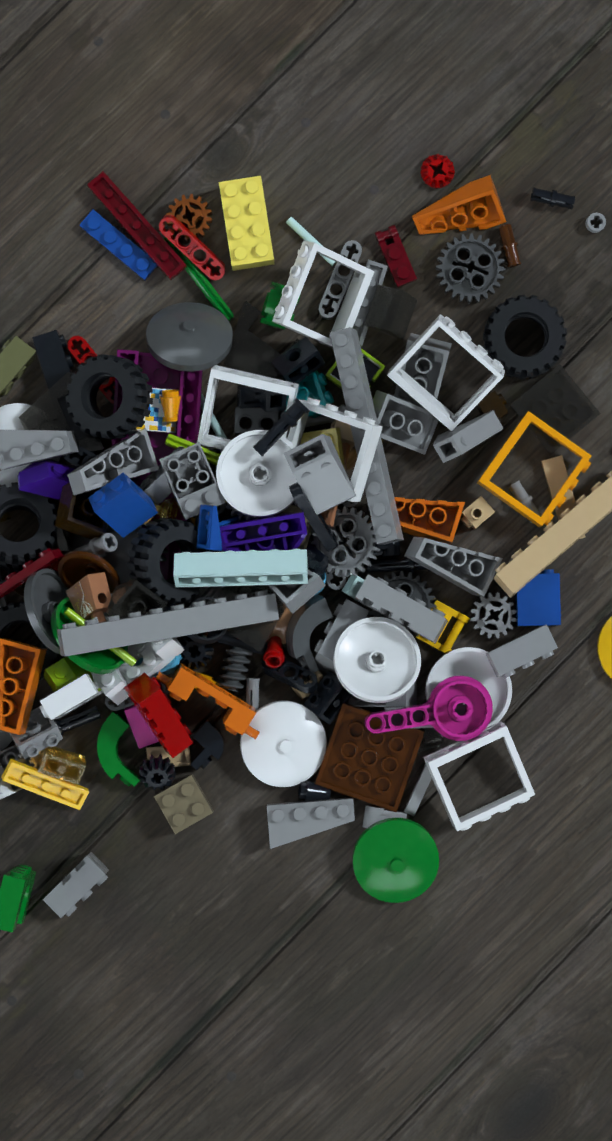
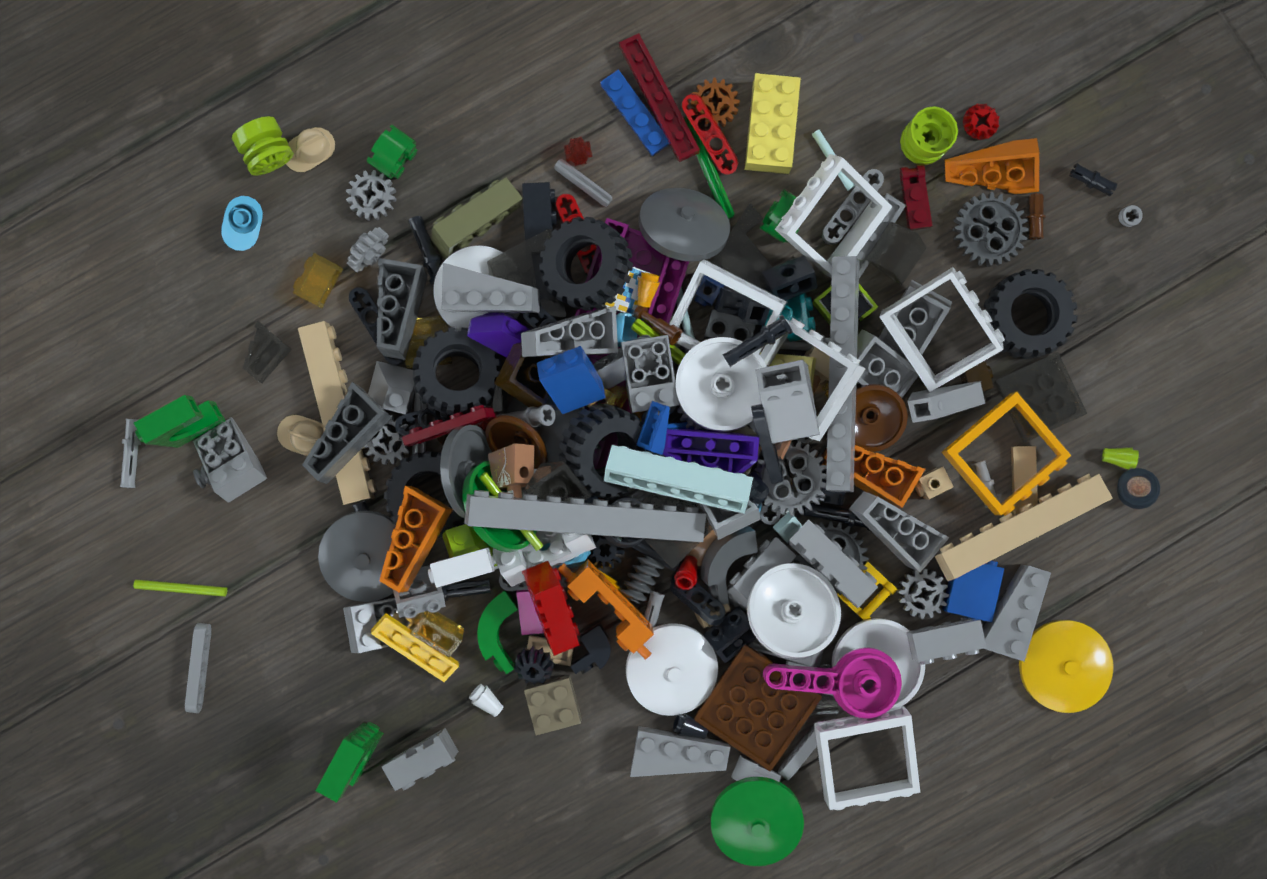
camera: 20 degrees right, 0 degrees up
(75, 294) = (578, 151): none -> clear red gear
(87, 321) = (583, 182): none -> light grey axle
(122, 816) = (486, 700): none -> white cone
(158, 445) = (624, 330): none -> medium azure hair
(189, 434) = (658, 325): none -> reddish brown piece
(223, 399) = (701, 298): none -> dark blue brick
(393, 186) = (937, 127): none -> lime wheel
(421, 468) = (887, 421): none -> reddish brown dish
(582, 612) = (1017, 613): none -> light grey wedge

